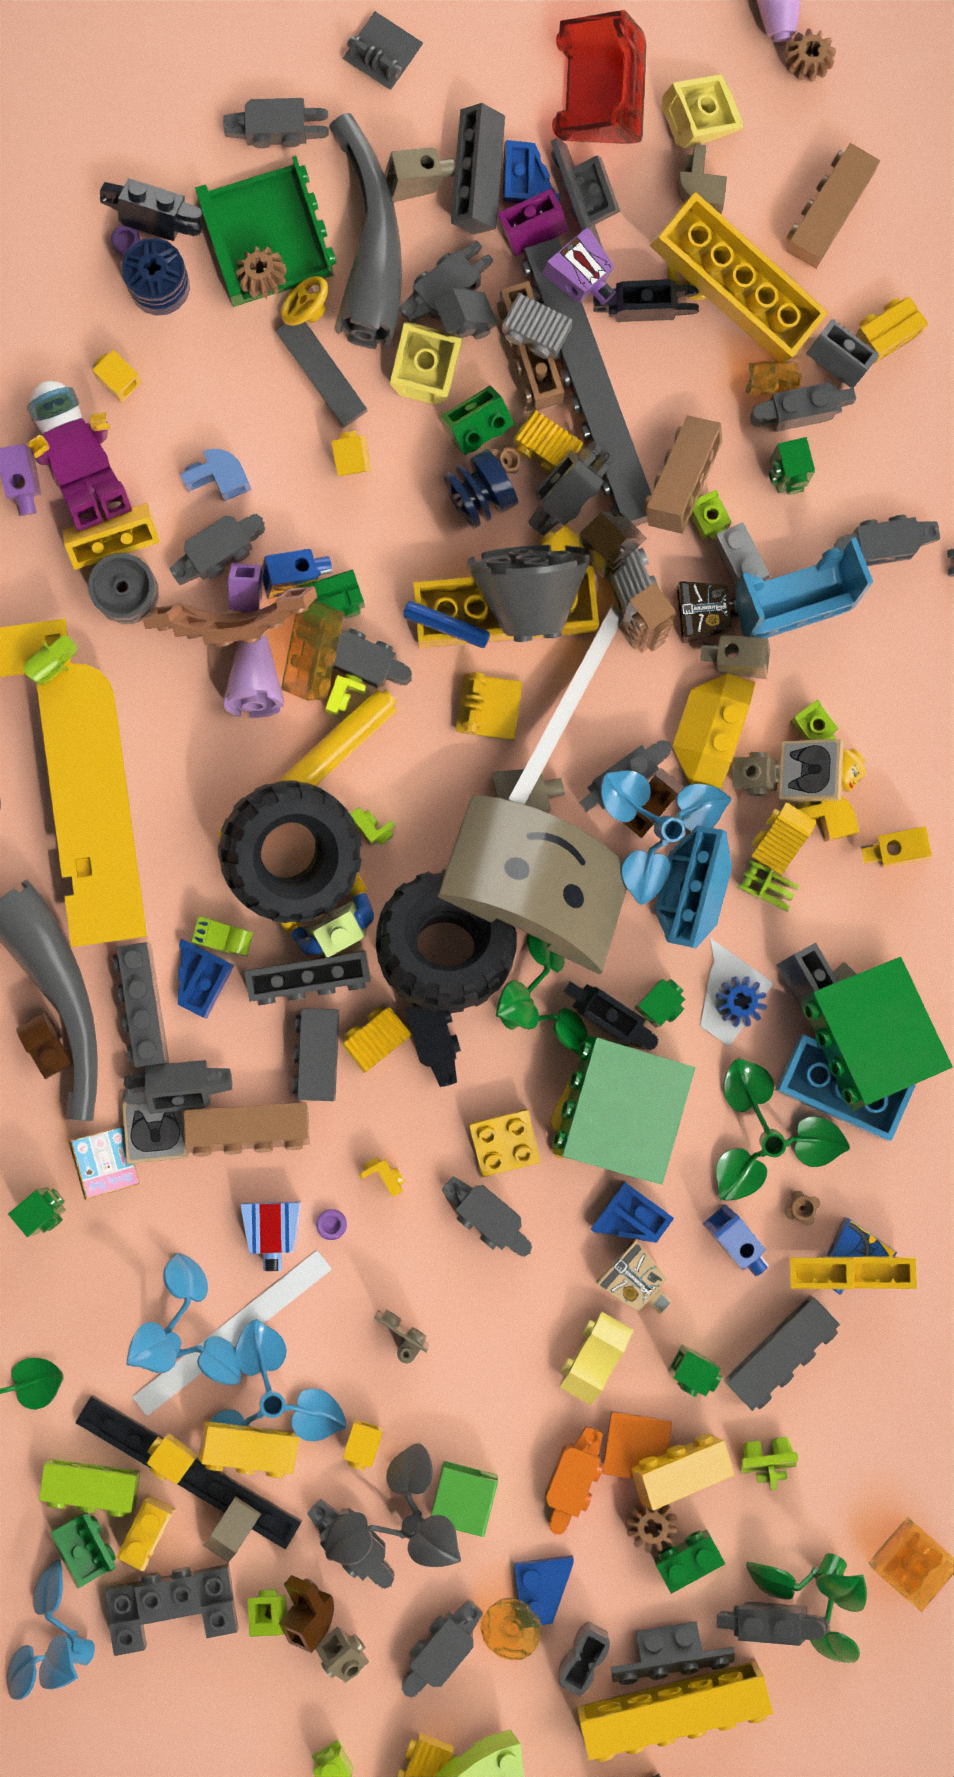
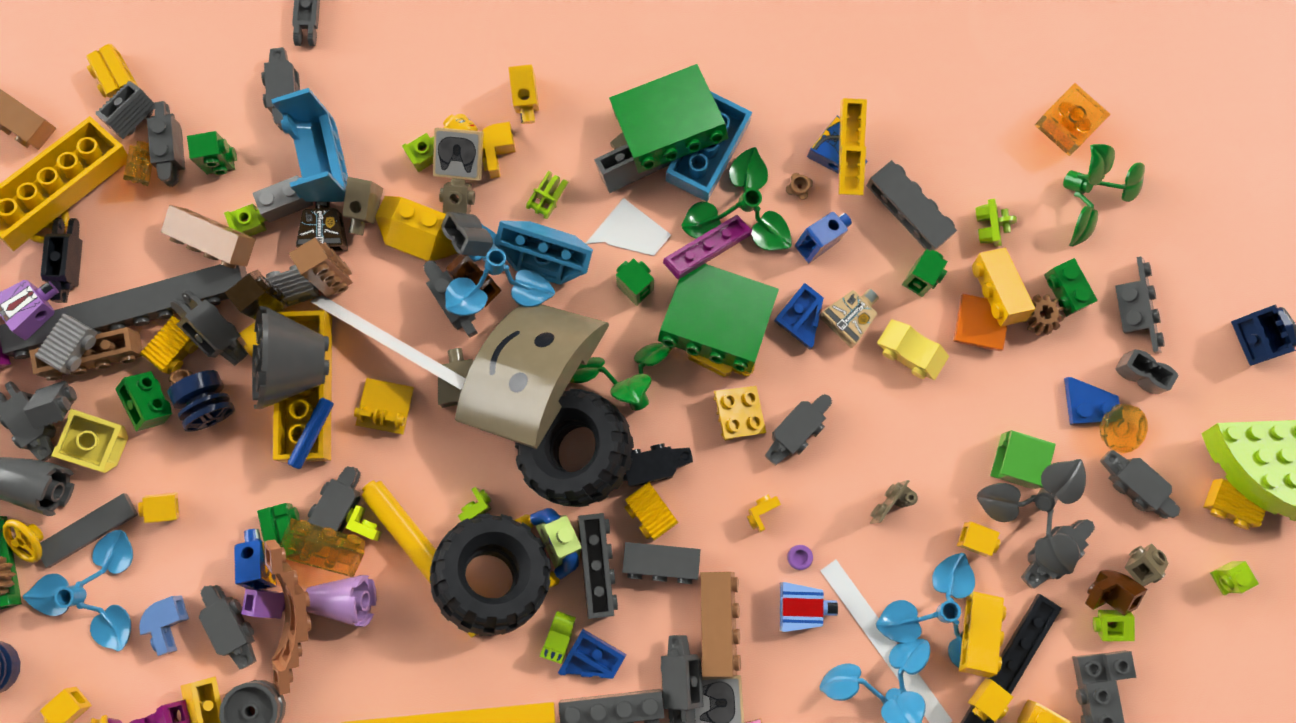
camera: 85 degrees left, 5 degrees down
(232, 1529) = (1047, 651): dark tan slope -> none
(240, 344) = (55, 596): none -> dark azure plant
(572, 1479) = (1007, 373): orange hinge -> none
(611, 1016) = (642, 321): black hinge -> none
(674, 1711) = (1186, 304): yellow brick -> none
(705, 790) = (467, 234): none -> dark grey brick
(712, 1092) = (707, 247): none -> magenta tile
(737, 1011) = (645, 217): blue gear -> none
(773, 1623) = (1118, 225): dark grey hinge -> none
(783, 838) = (510, 178): yellow brick -> none

